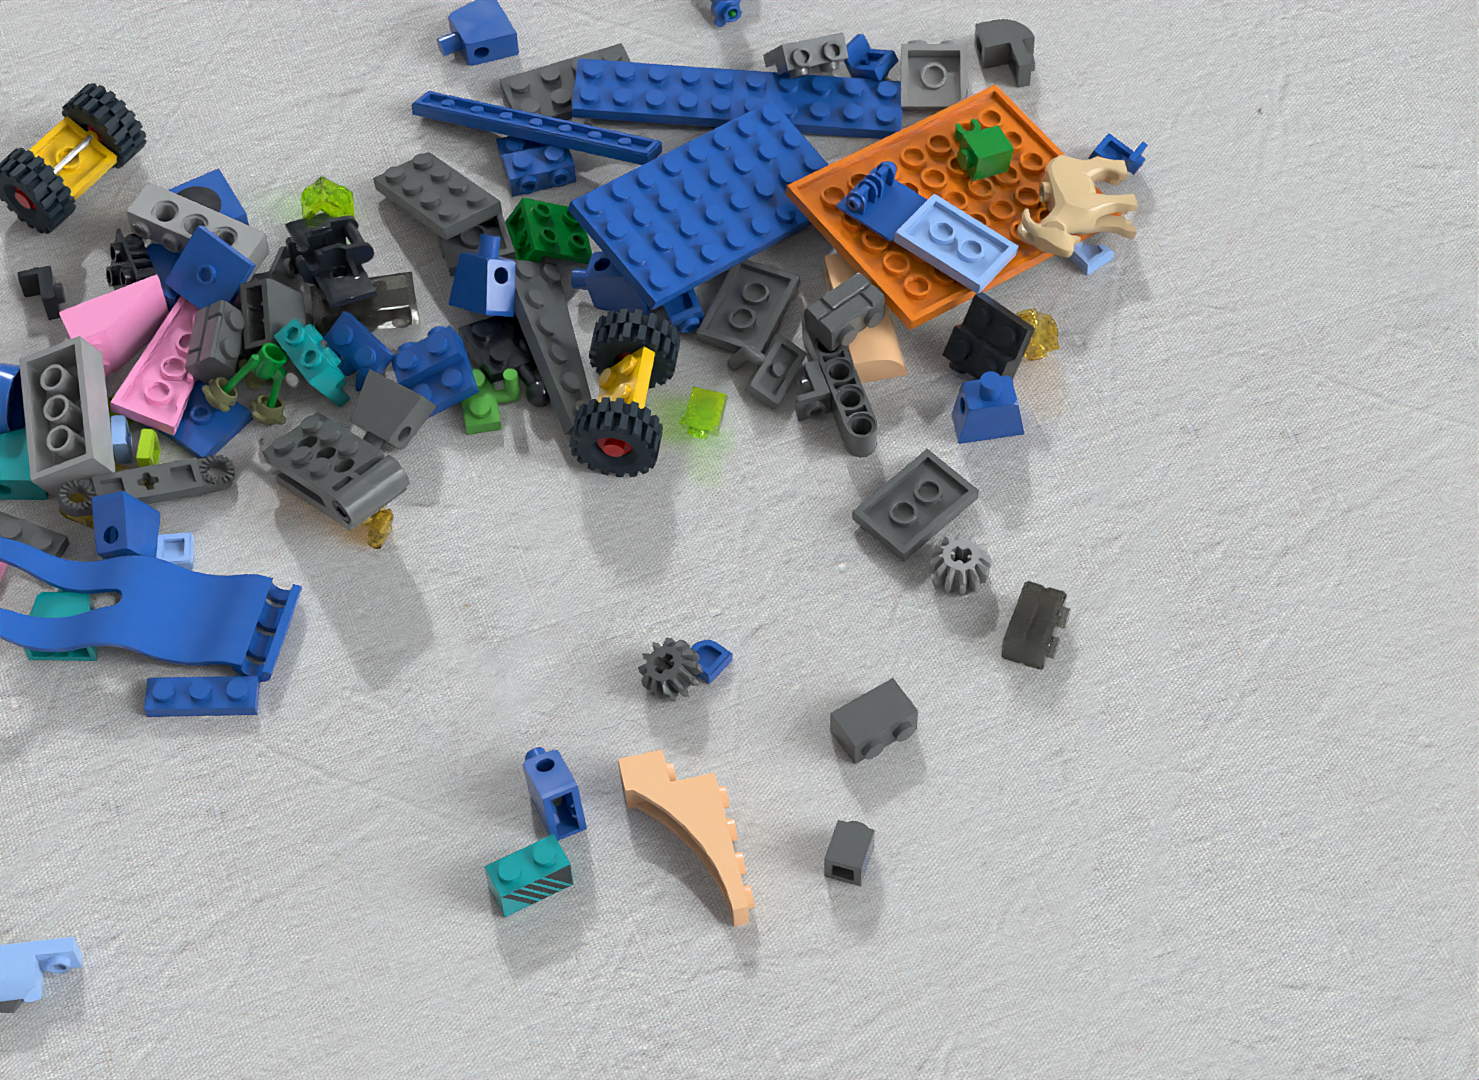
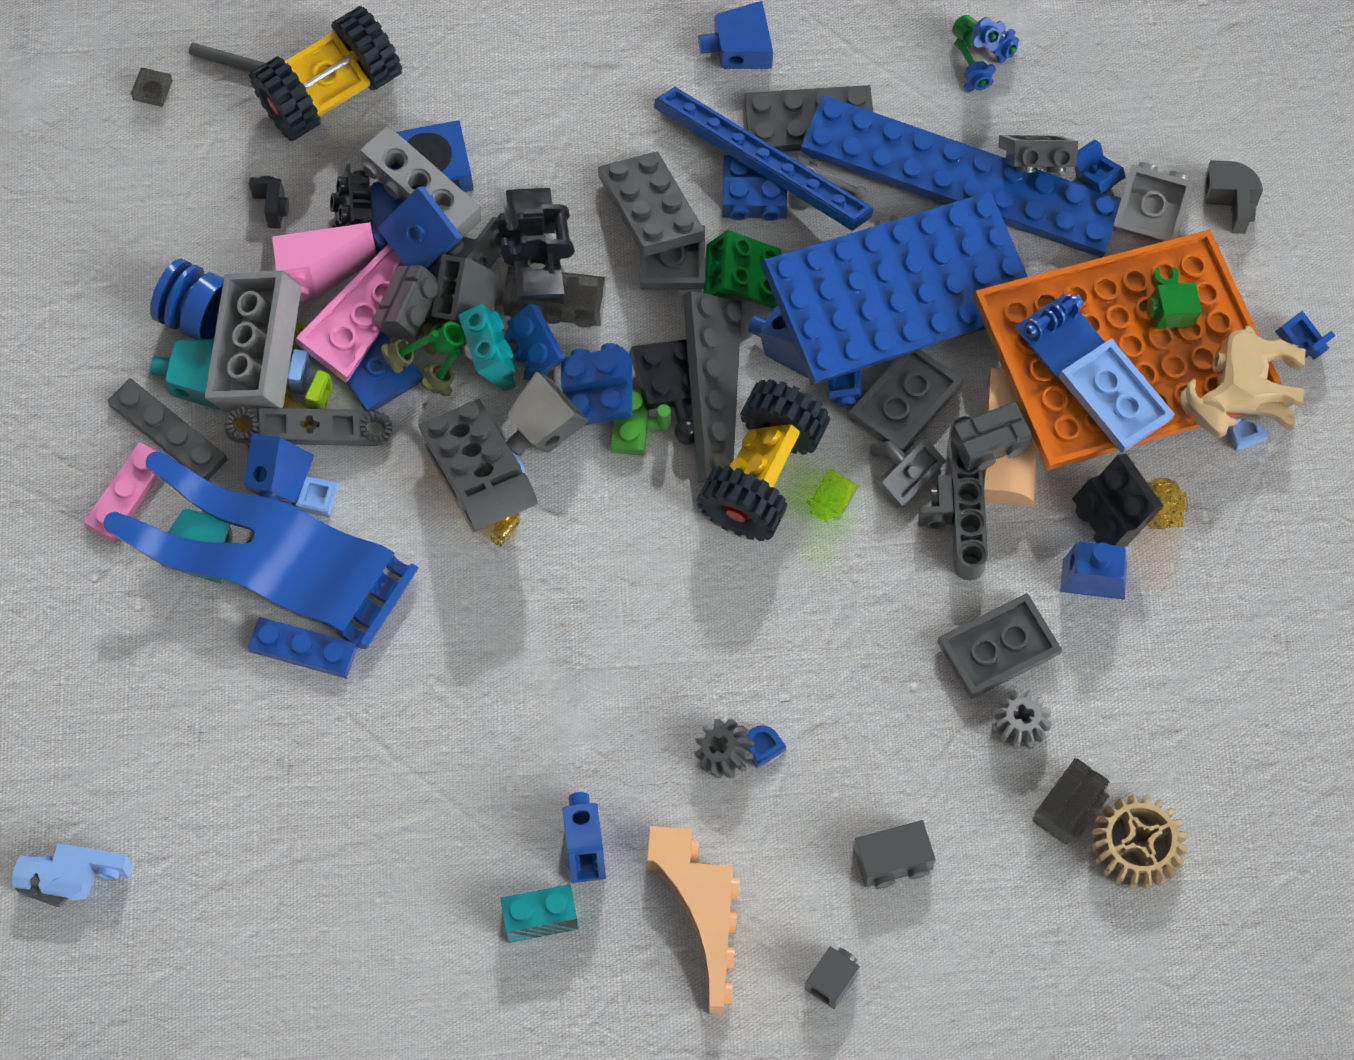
camera: 15 degrees right, 10 degrees up
(327, 197) = (550, 177): clear neon green bracket -> none
(485, 280) = (667, 309): blue torso -> none
(1113, 629) = (1163, 827): none -> tan gear

